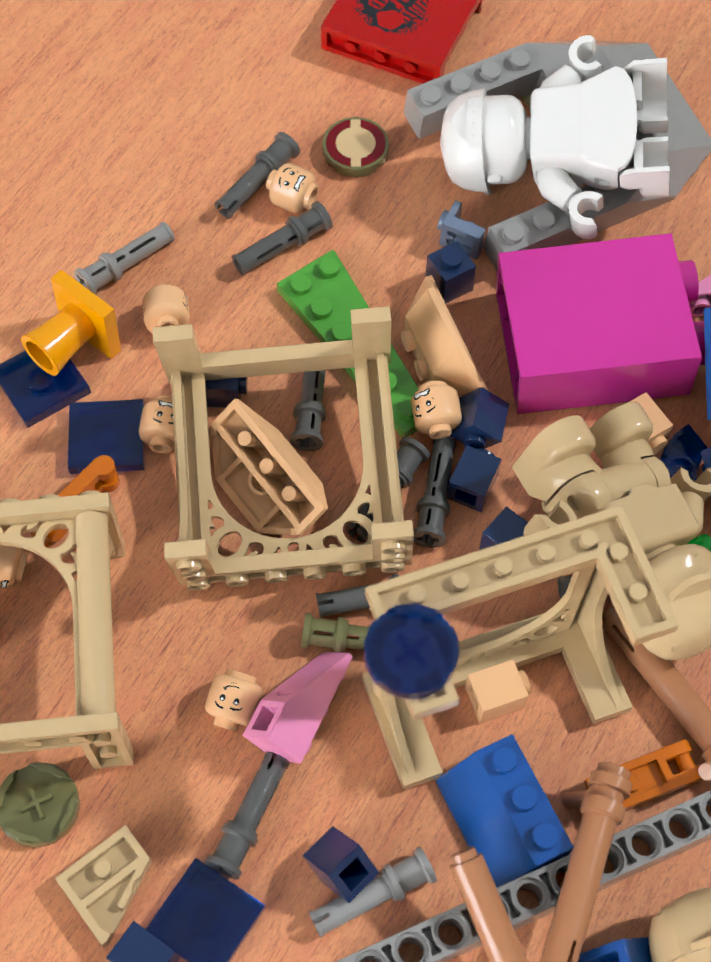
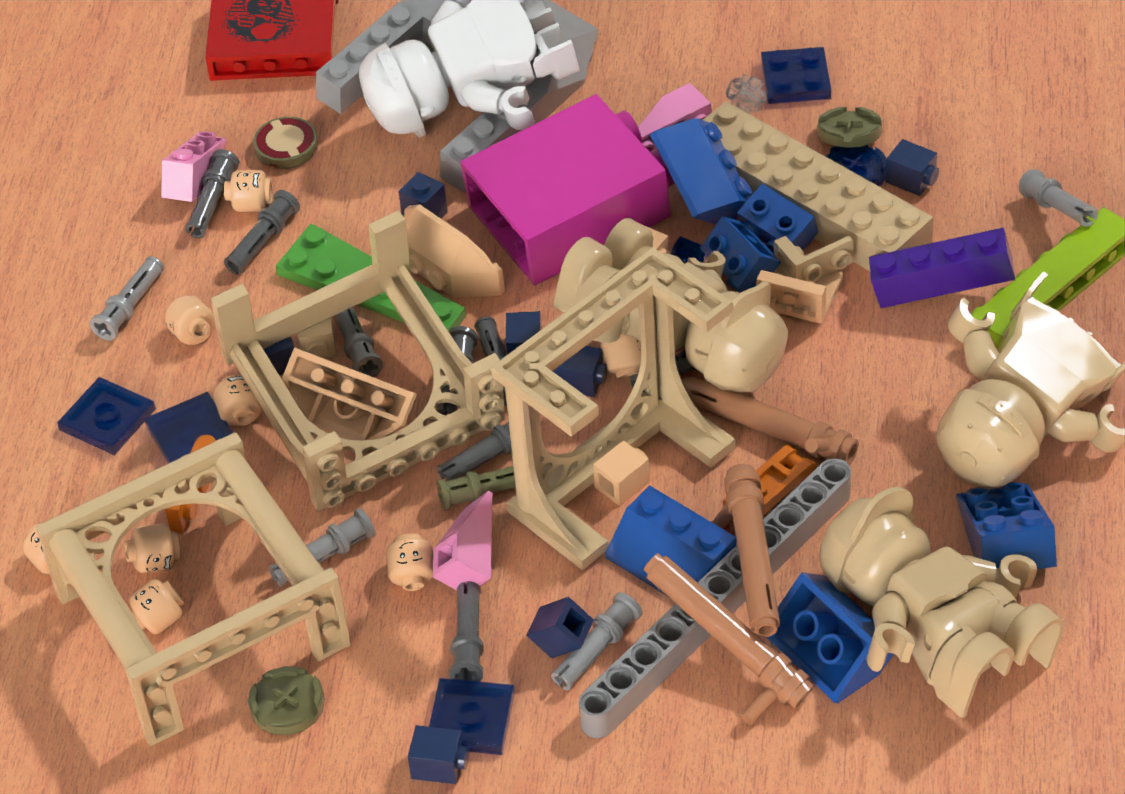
camera: 20 degrees left, 15 degrees down
(79, 319) = (119, 348): light orange plant -> none
(106, 882) = (375, 722): tan wing -> none
(176, 635) = (336, 540): none -> light grey pin
(244, 137) = (186, 165): none -> bright pink slope
(274, 390) = (318, 339): none -> tan brick
(411, 651) = (547, 388): clear blue tile -> none
(436, 409) = (466, 297): light nougat head -> none
(465, 232) = (407, 167): sand blue bracket -> none
(482, 419) = (505, 292): dark blue brick -> none

